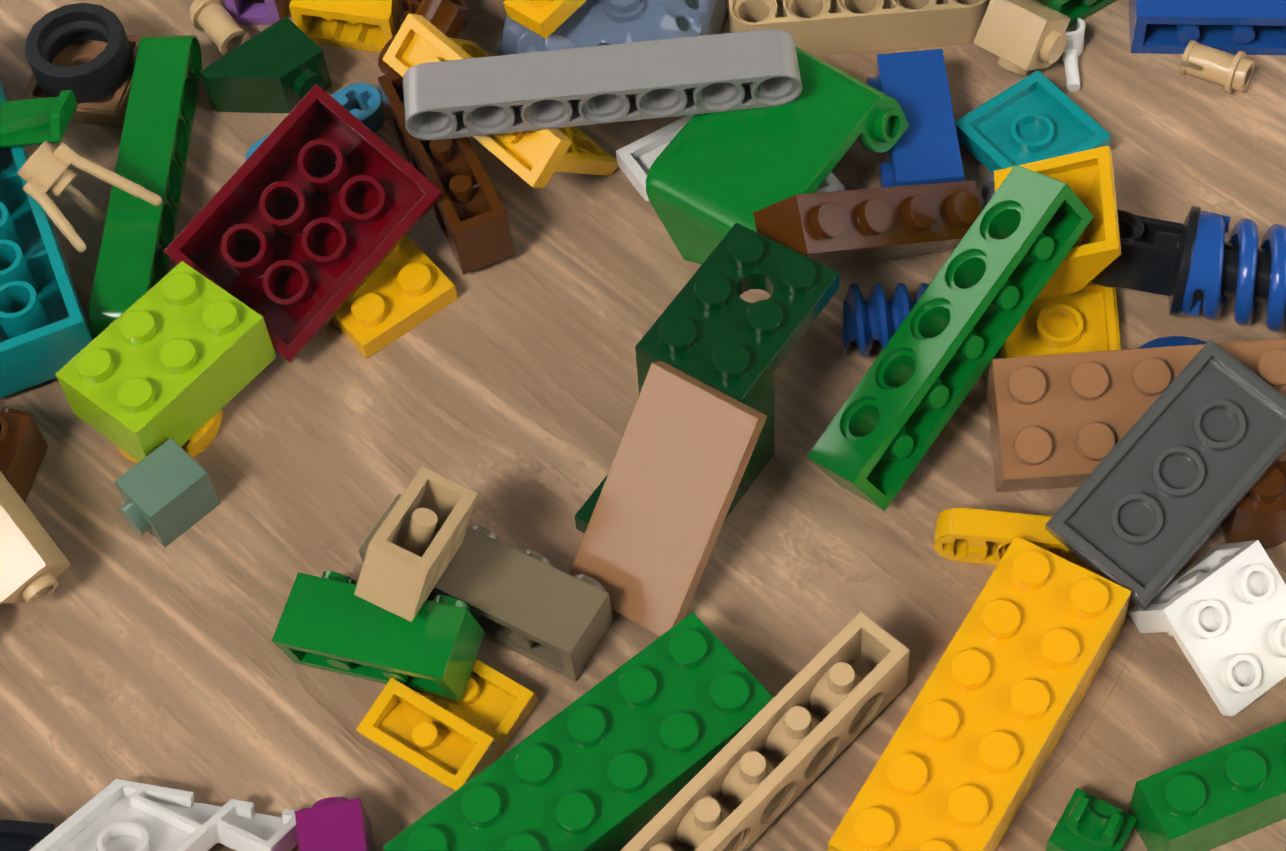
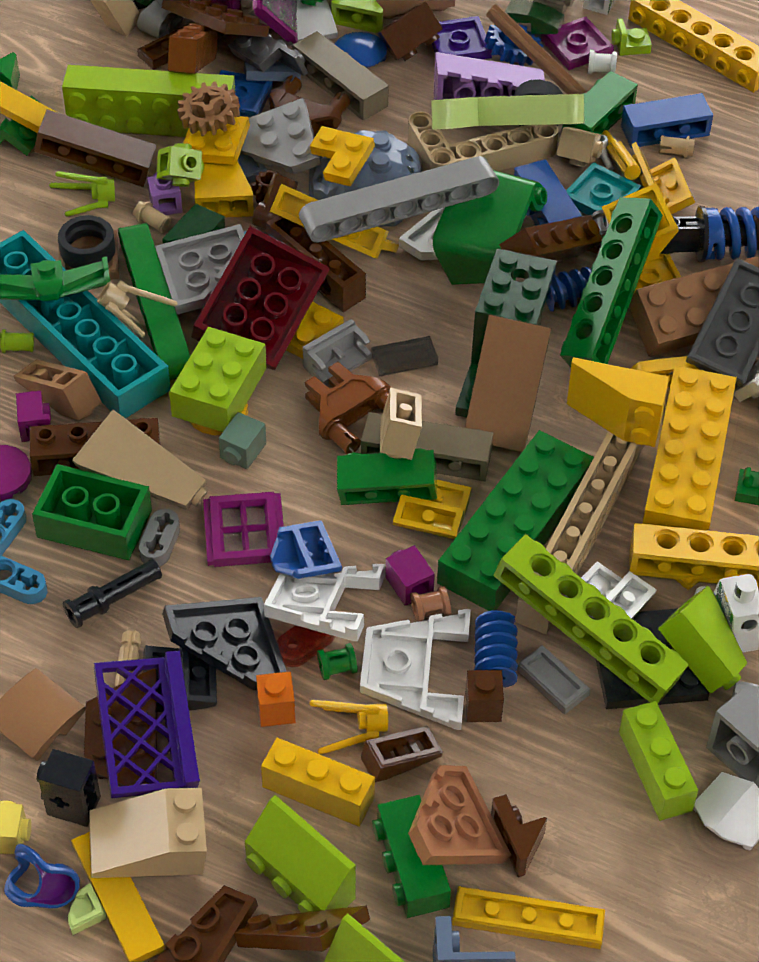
camera: 25 degrees left, 5 degrees down
(97, 671) = (241, 528): none -> magenta piece
(168, 752) = (304, 551): none -> blue slope
(222, 126) = (196, 265): none -> light grey plate
(380, 463) = (345, 403): none -> dark orange connector
(410, 354) = (340, 345): none -> light grey hinge
(533, 386) = (404, 356): none -> clear smoke tile
(857, 605) = (619, 399): none -> yellow slope
(1096, 70) = (622, 157): none -> yellow axle
(1158, 141) = (668, 178): none -> yellow bracket

